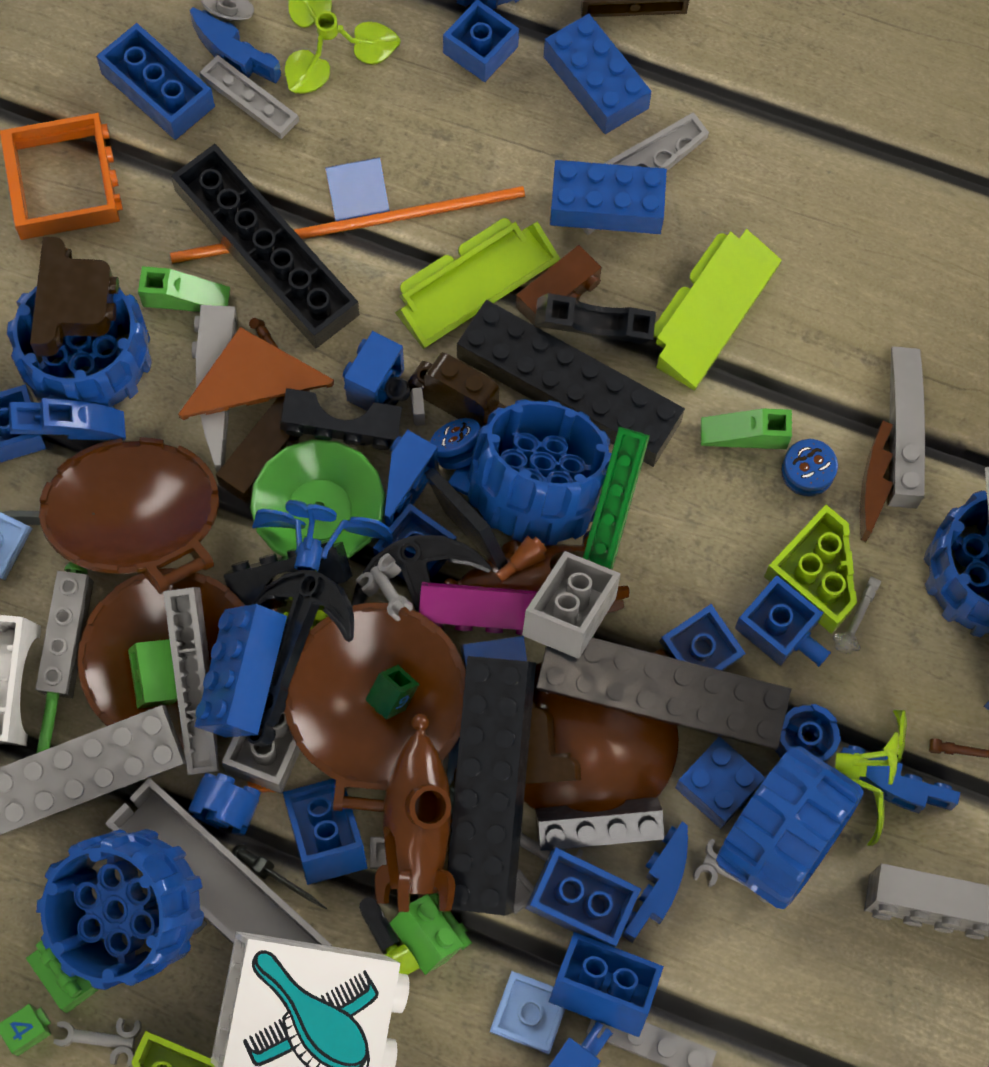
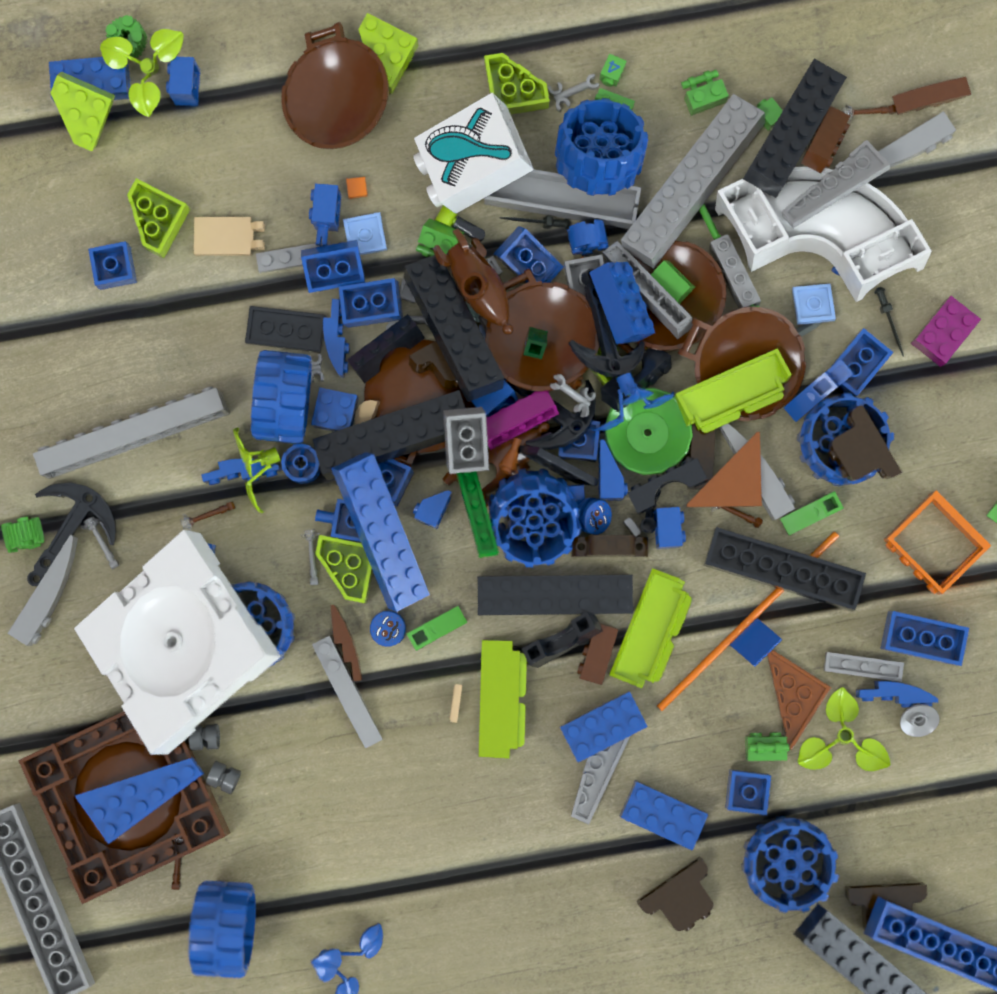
camera: 155 degrees right, 15 degrees up
(163, 480) = (738, 389): none -> lime slope
(350, 111) = (797, 695): none -> dark orange tile
(425, 75) = (766, 747): none -> bright green brick
(663, 571) = (432, 509): none -> blue slope
(680, 753) = (366, 411): none -> tan tile
(724, 945) = (284, 329): none -> black tile
(753, 574) = (380, 531): none -> brick
(771, 333) = (456, 703): none -> tan tile

